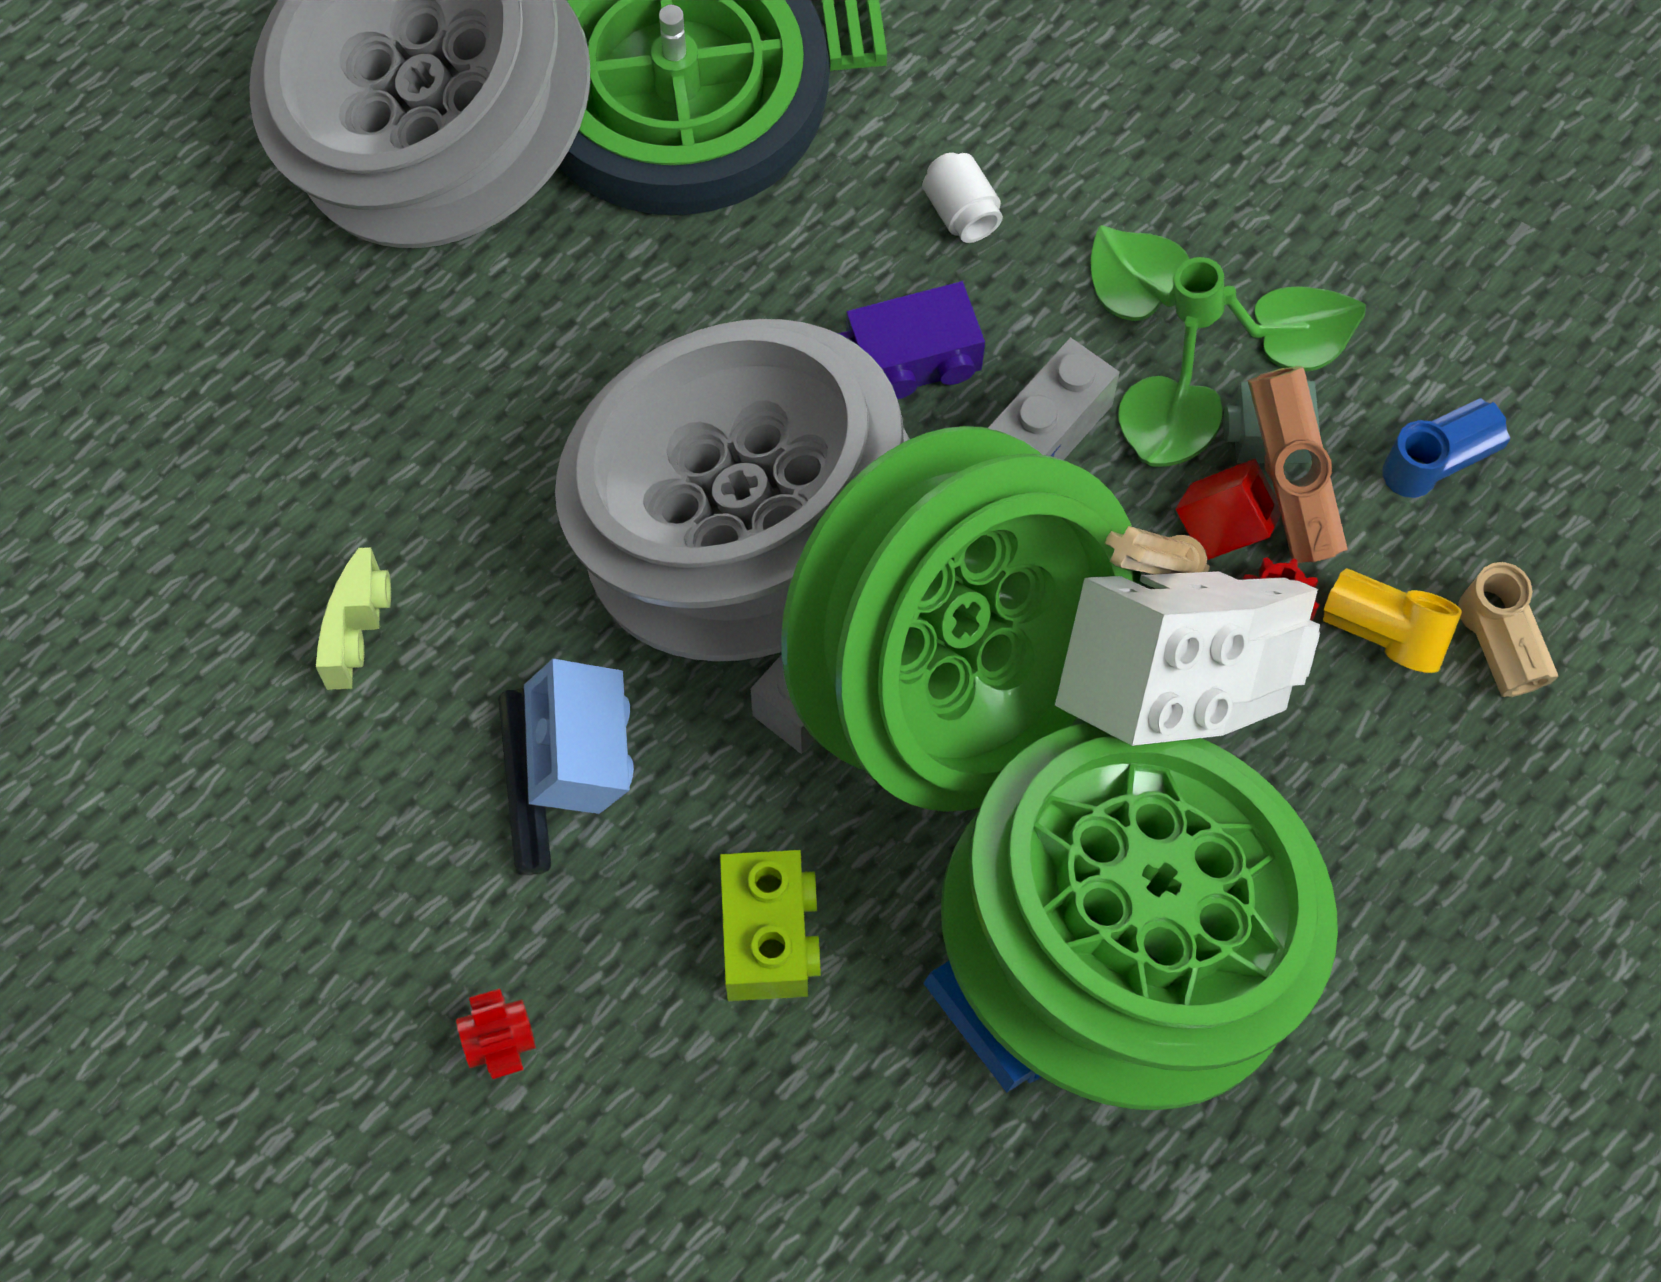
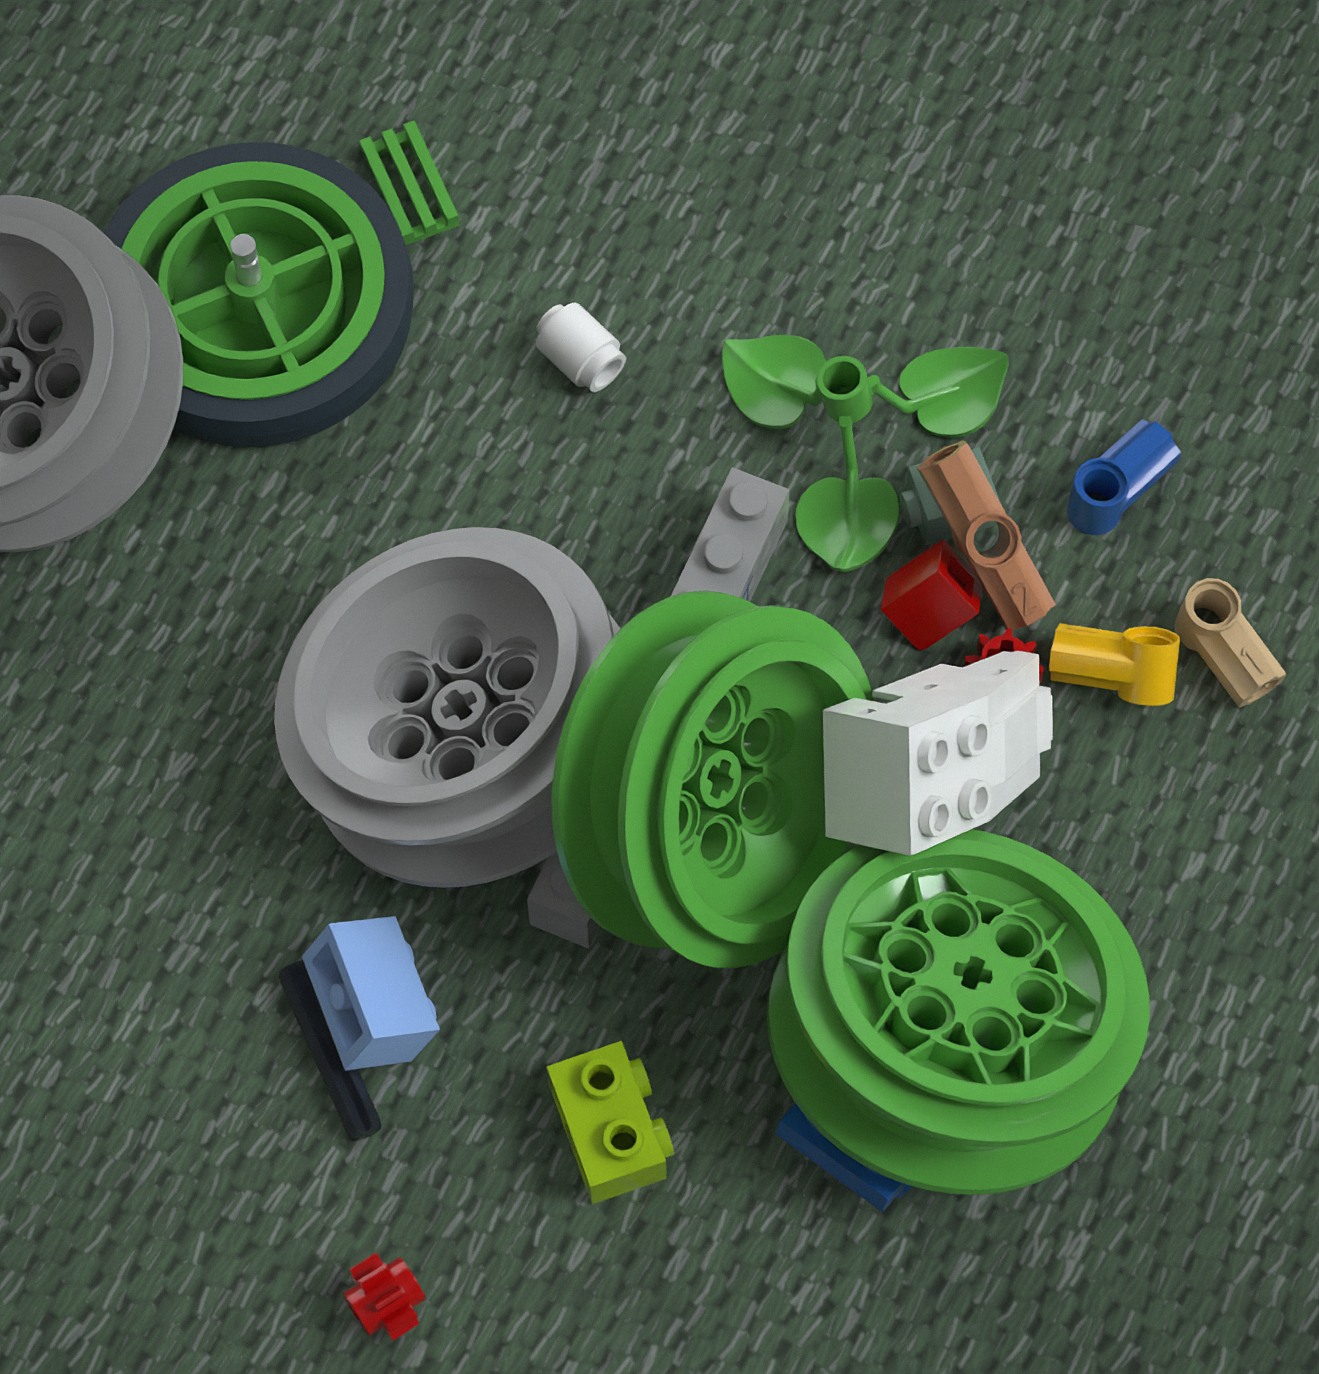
camera: 15 degrees left, 0 degrees up
(351, 608) = (108, 927): yellowish green slope -> none
(920, 337) = (581, 504): dark purple brick -> none
(1156, 553) = (892, 661): tan axle -> none

